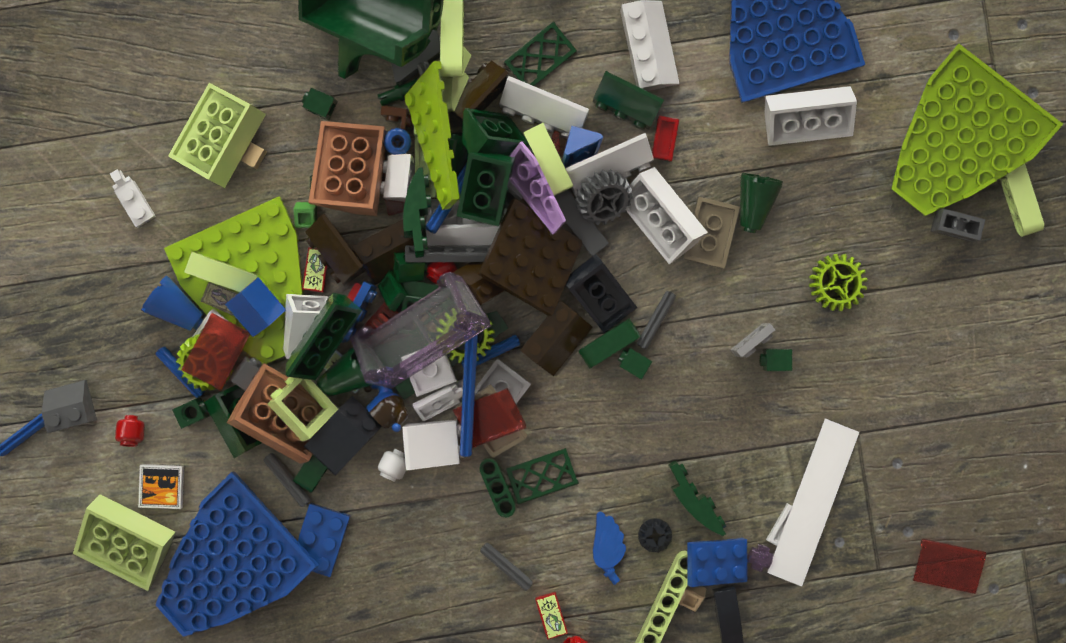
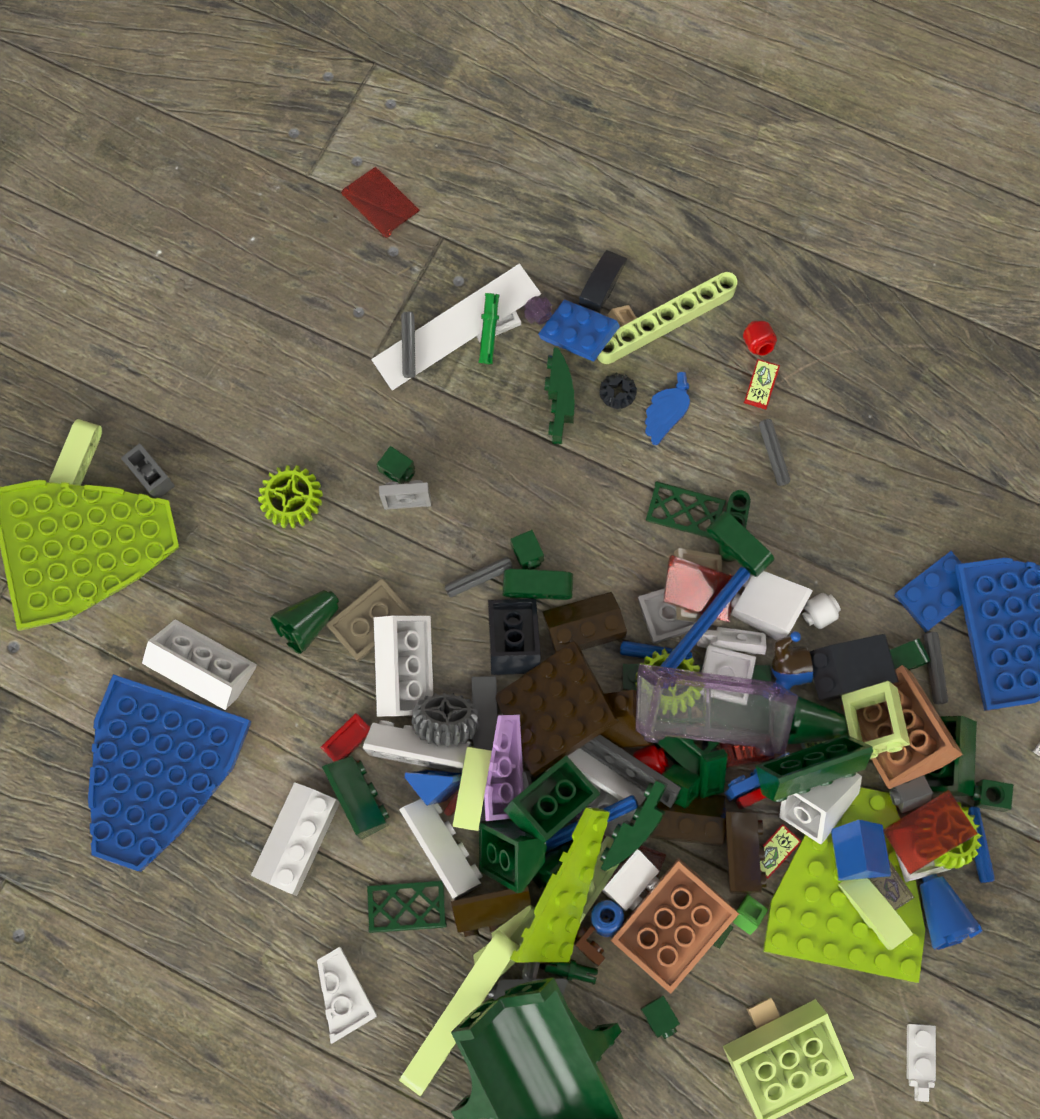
camera: 140 degrees left, 15 degrees down
(482, 472) = (740, 544): none -> dark green beam
(785, 514) = (489, 328): none -> green pin
(838, 461) = (408, 344): none -> dark grey axle

